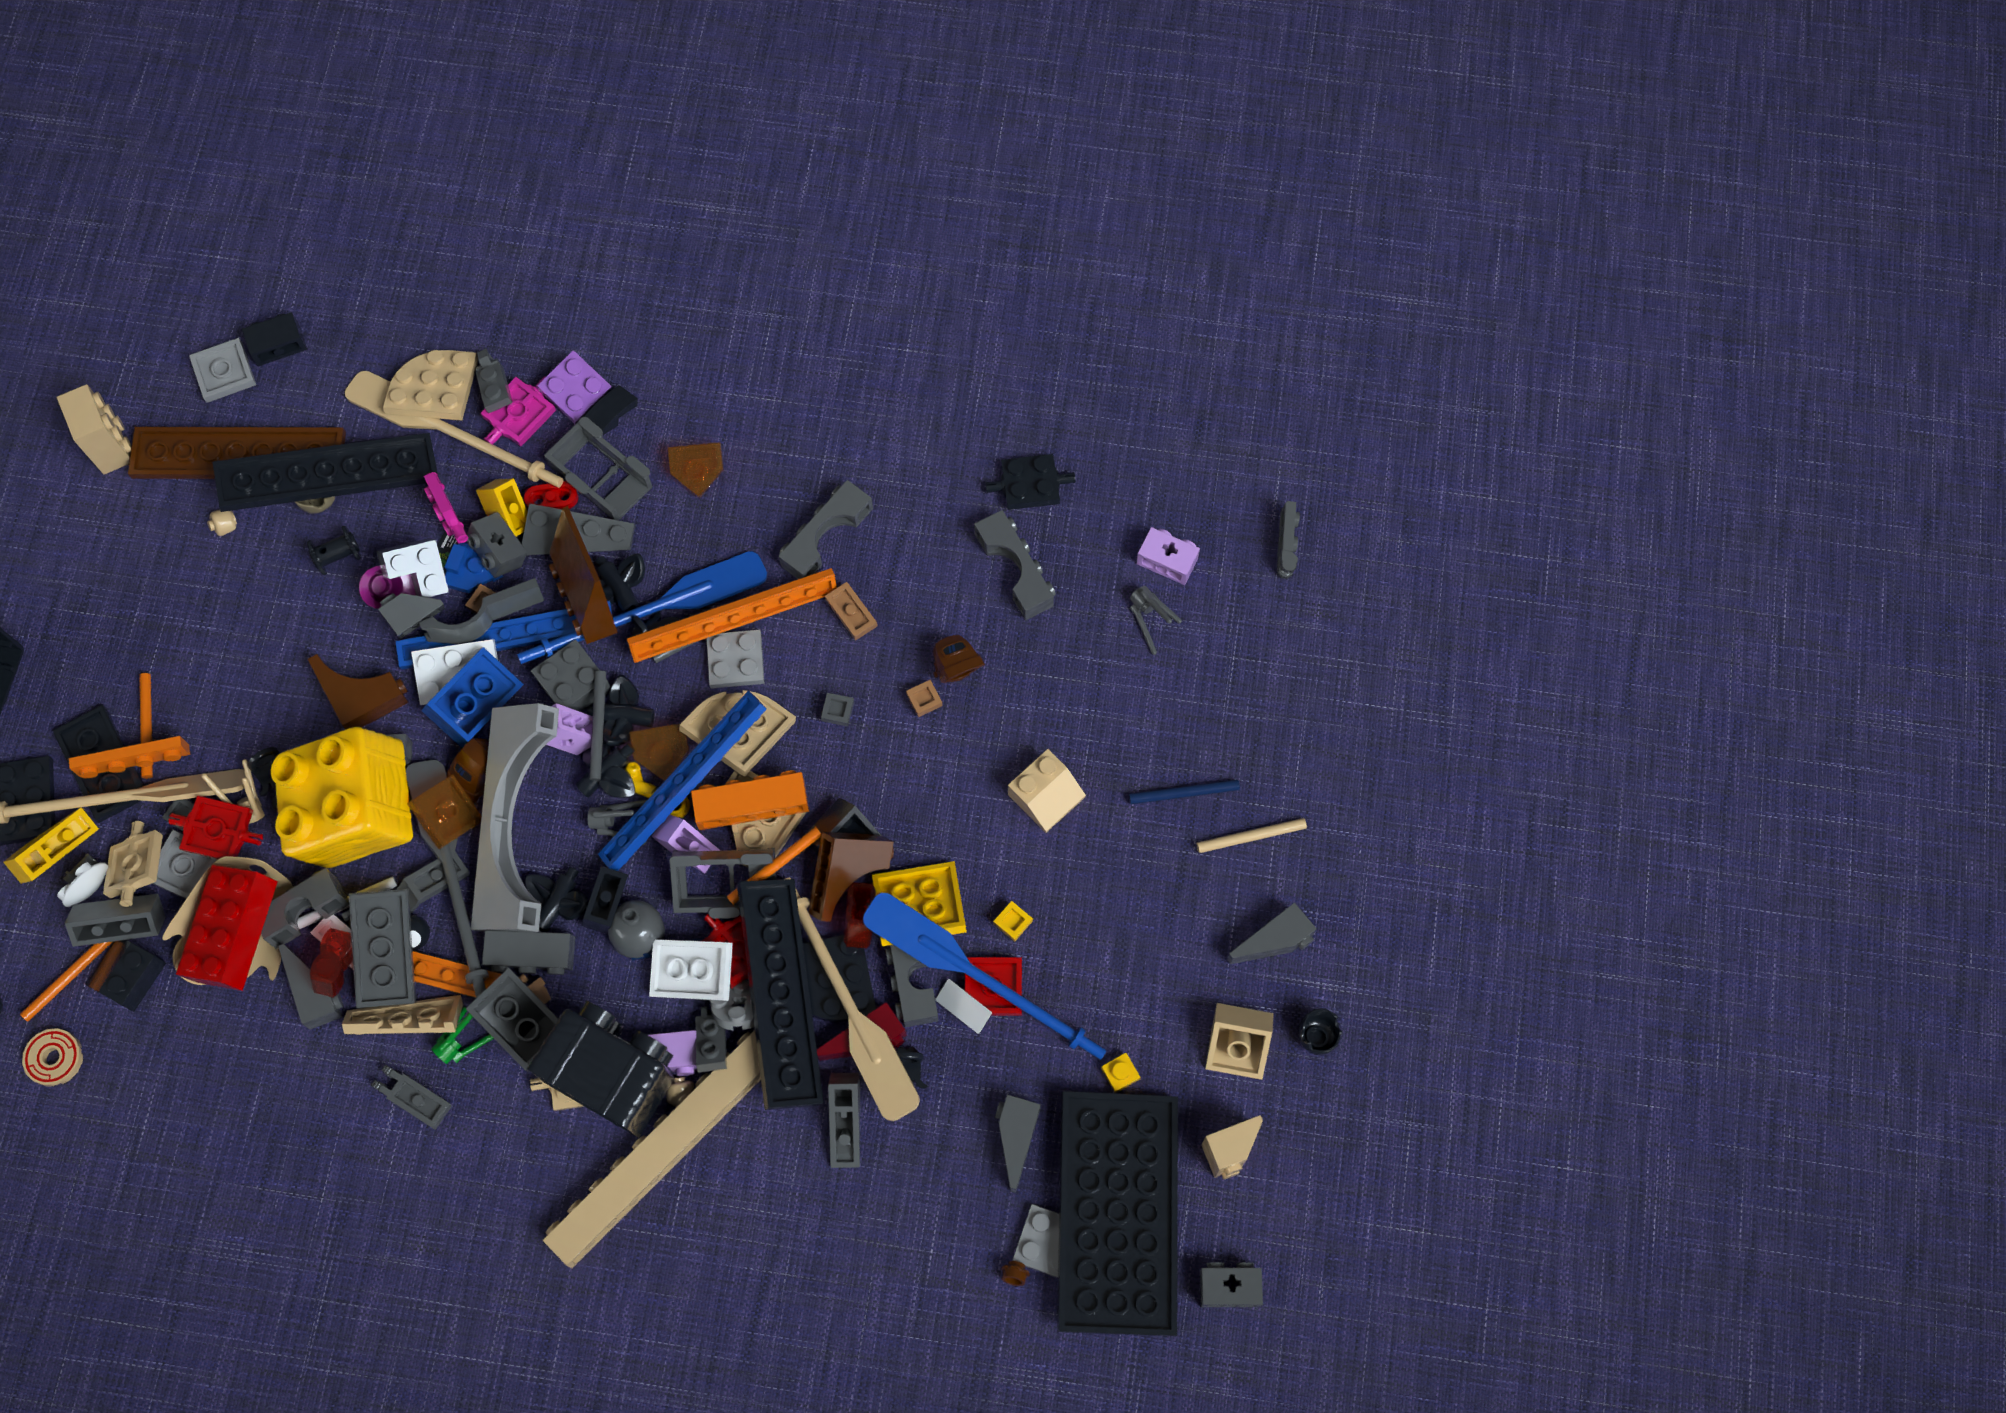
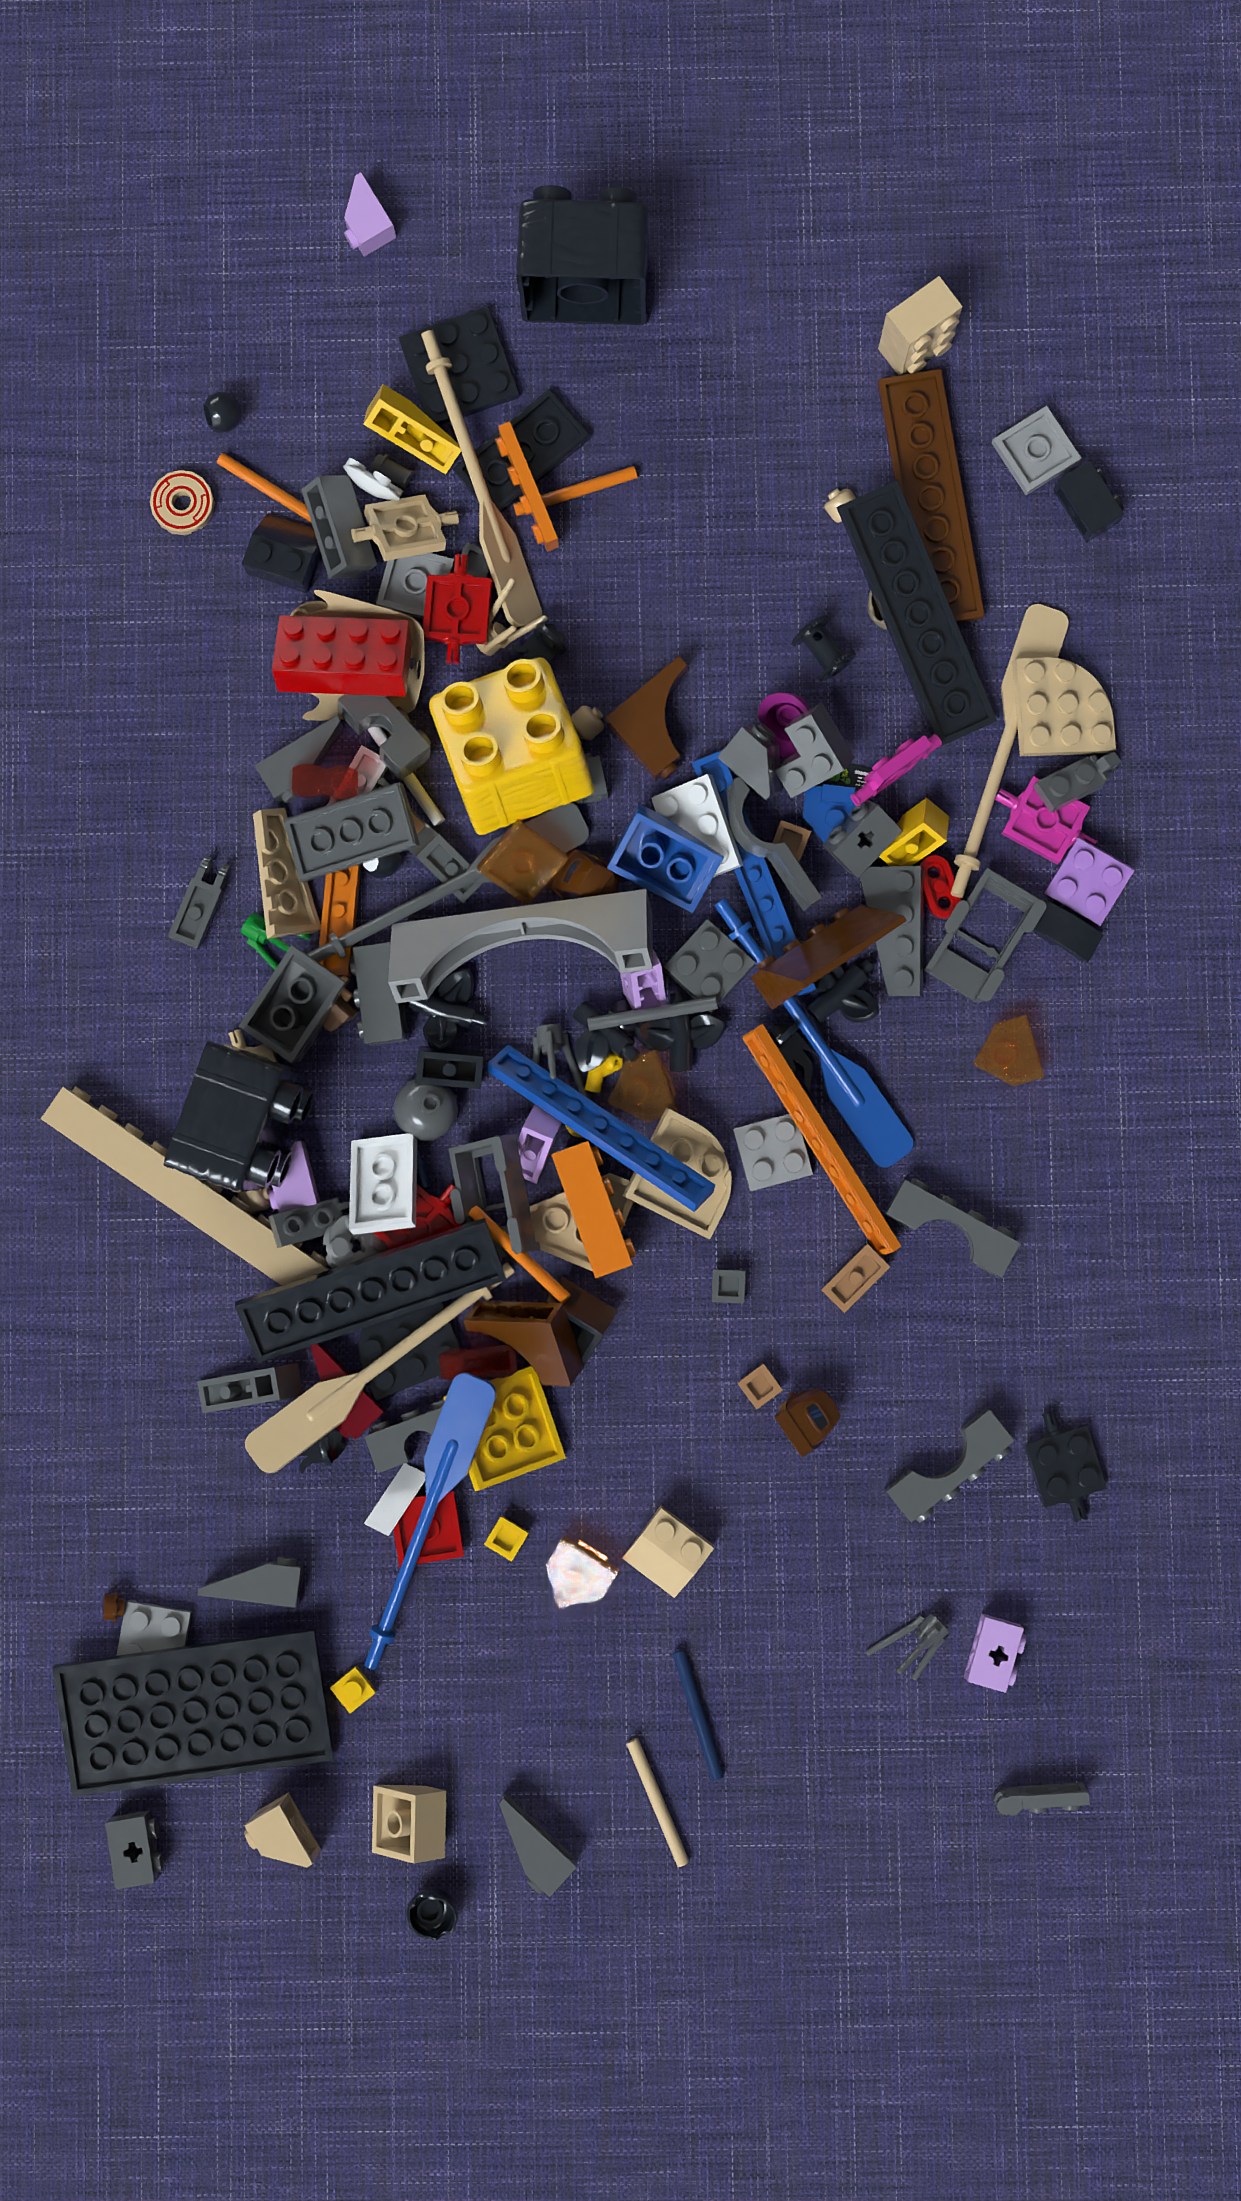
camera: 90 degrees right, 15 degrees up
(1053, 866) = (579, 1573): none -> plate

